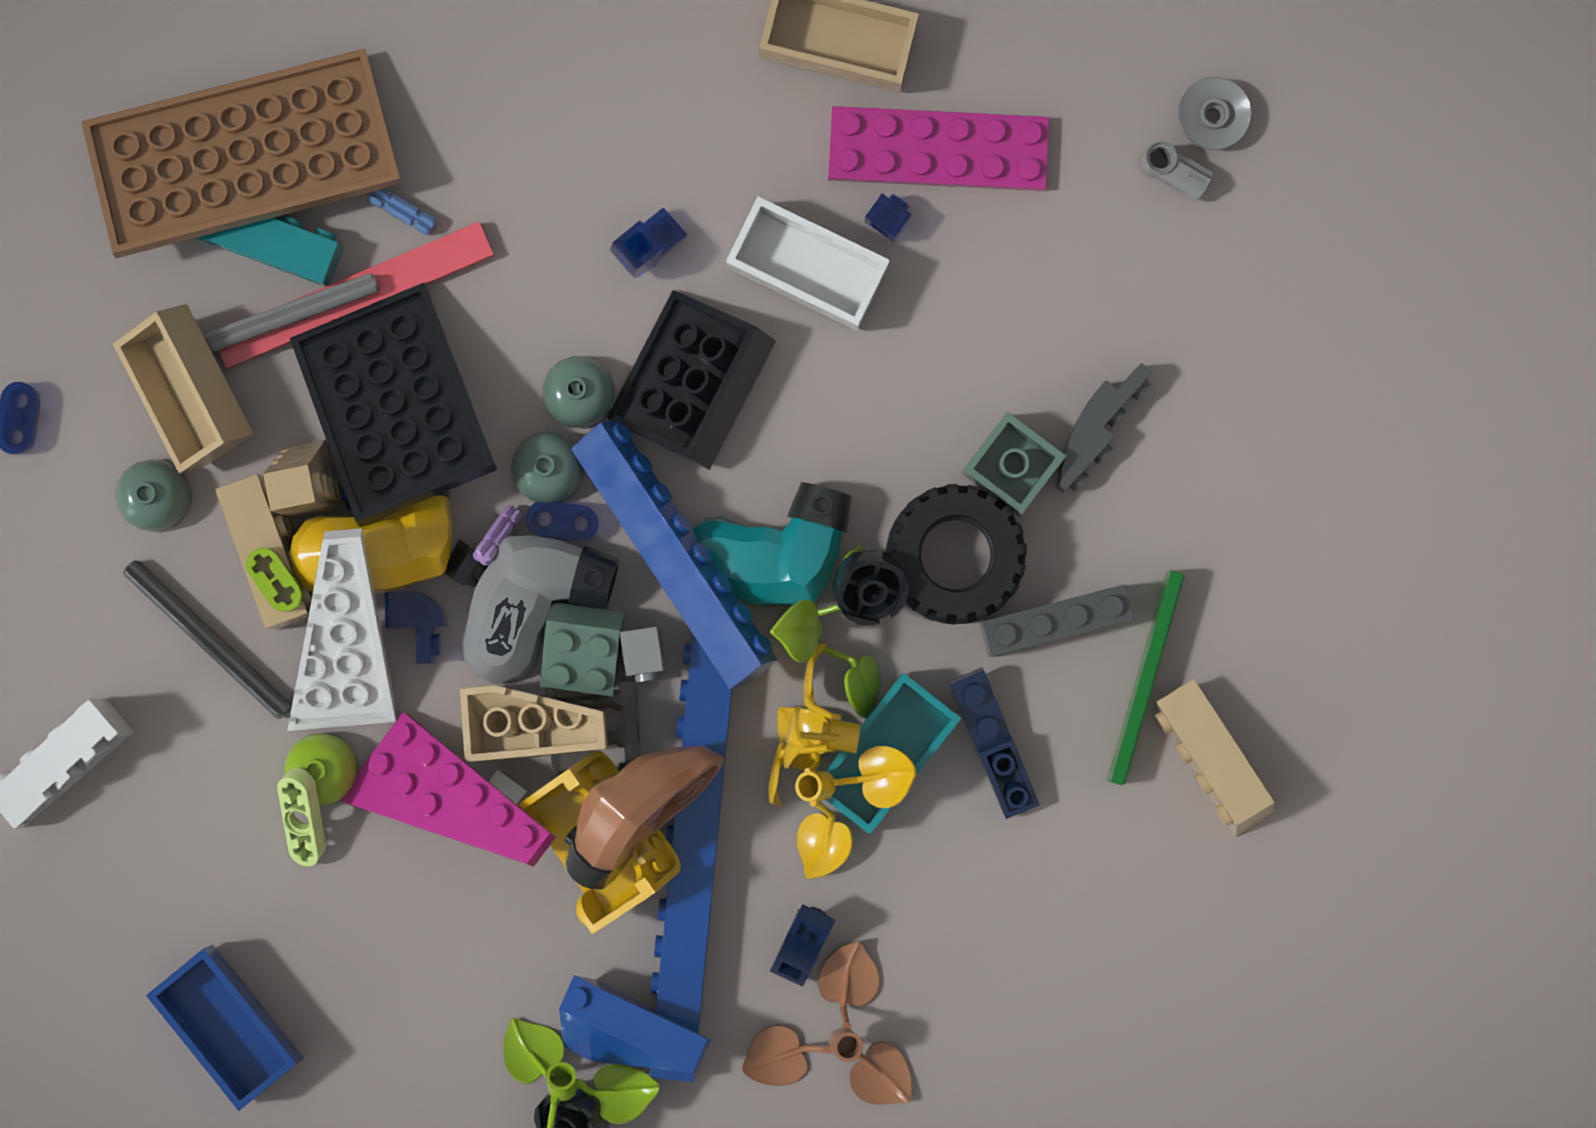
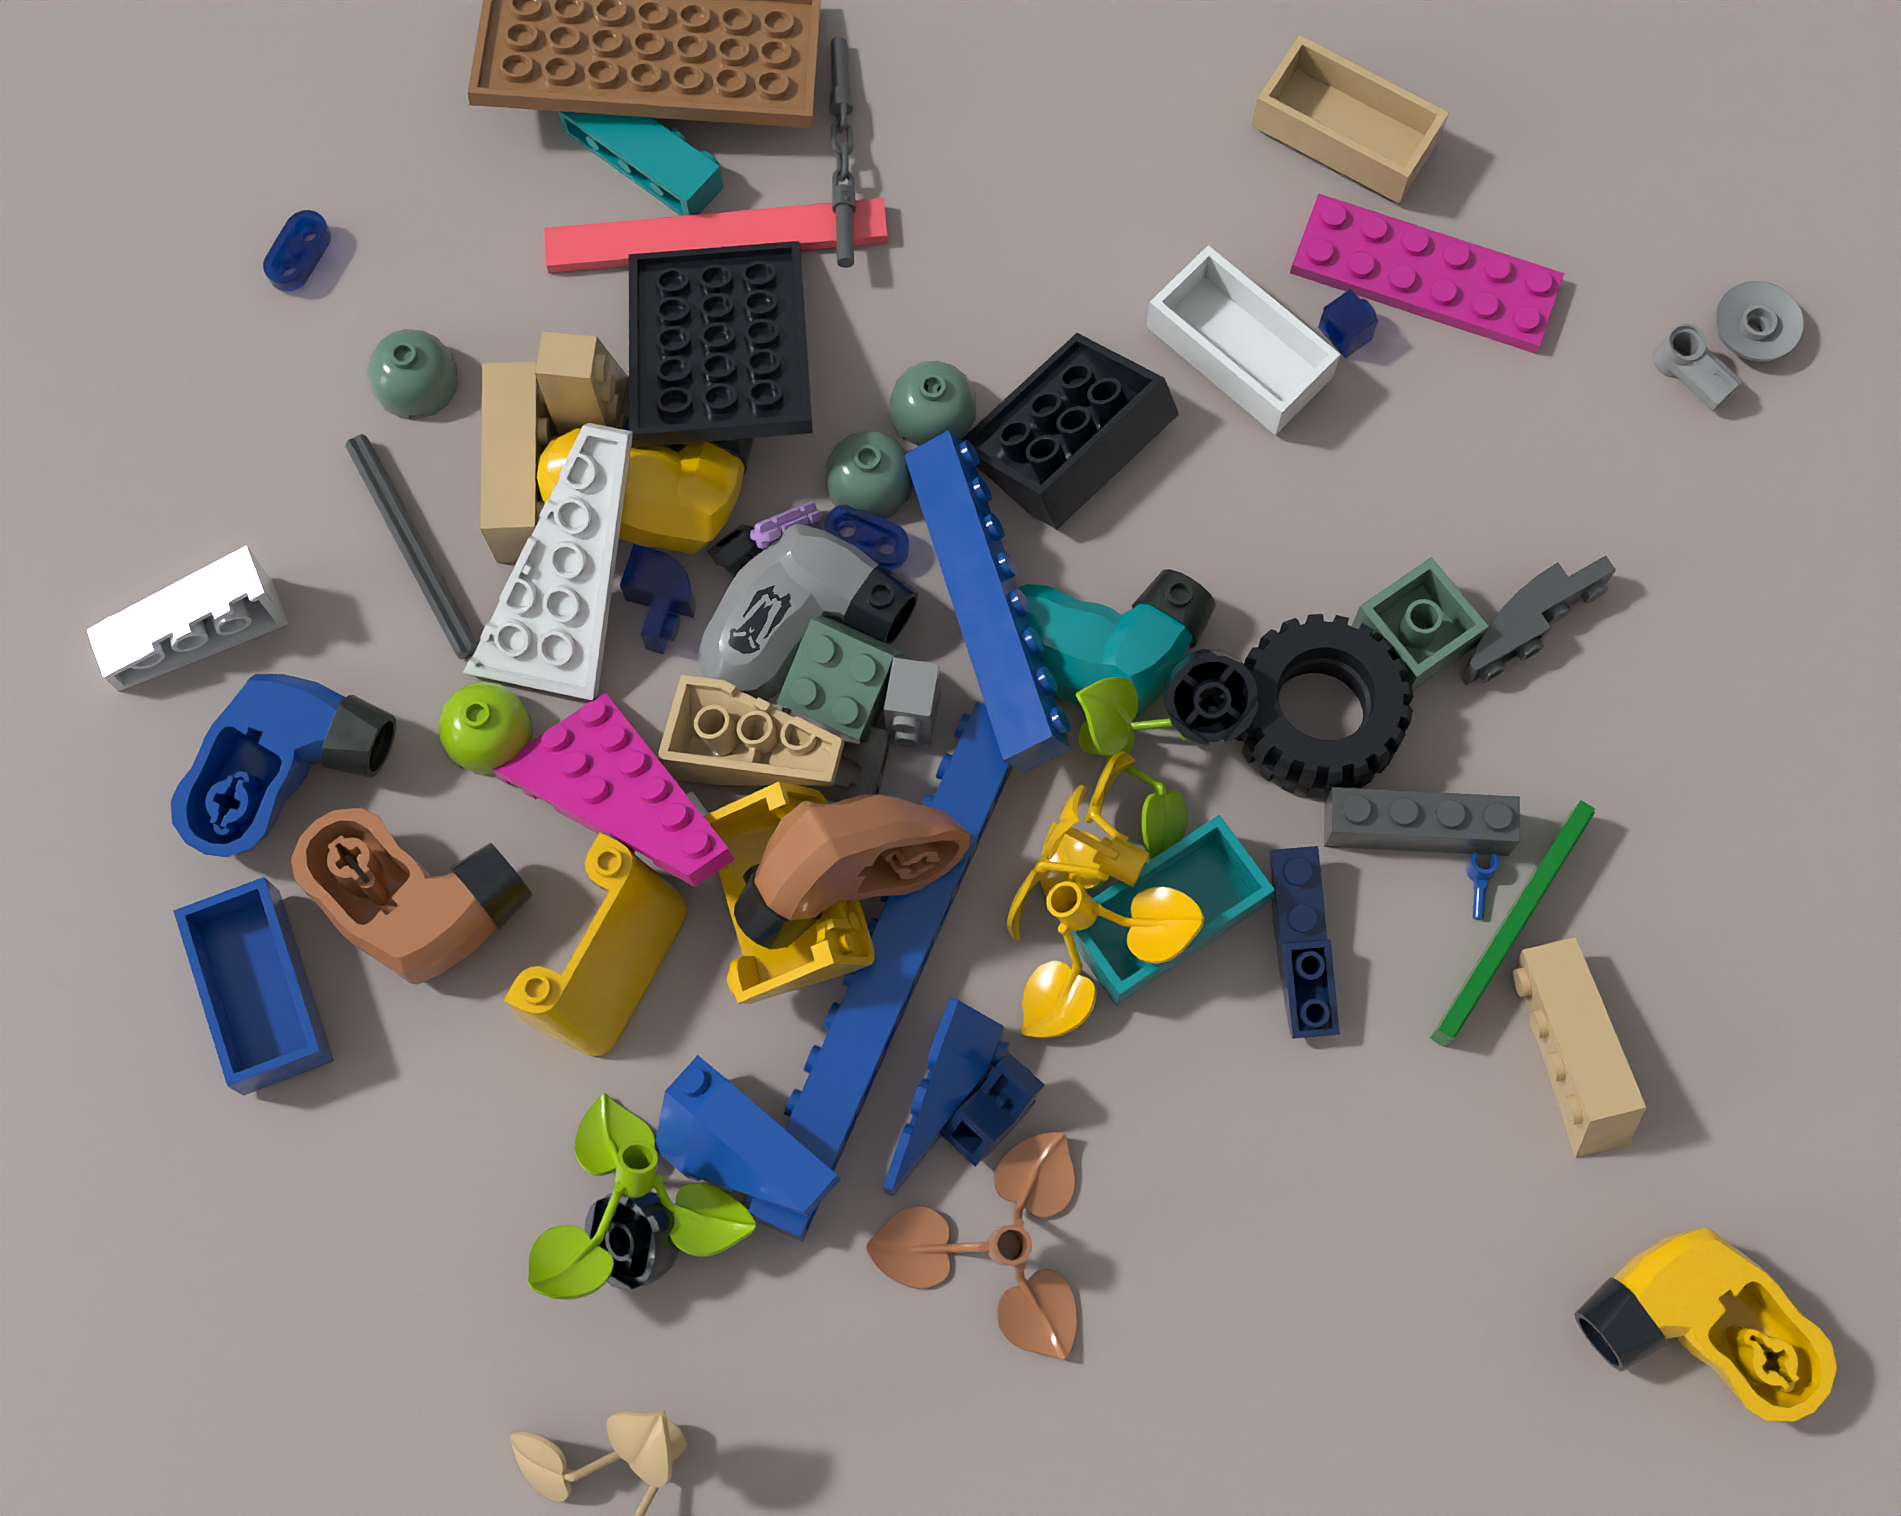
camera: 15 degrees right, 15 degrees down
(161, 849) = (264, 752): none -> blue piece
(182, 388) = (490, 262): tan piece -> none
(267, 585) = (503, 478): lime beam -> none
(292, 312) = (641, 226): light grey axle -> none
(307, 934) = (391, 902): none -> nougat piece
(308, 804) = (454, 752): yellowish green beam -> none
(403, 210) = (802, 164): medium blue axle -> none
(416, 147) = (842, 195): none -> dark grey piece
(488, 925) = (612, 962): none -> yellow windscreen
(647, 243) = (1062, 269): clear blue brick -> none
(765, 924) = (957, 1066): none -> blue wedge
(1113, 649) = (1480, 878): none -> blue hand
(1366, 925) = (1723, 1314): none -> yellow piece

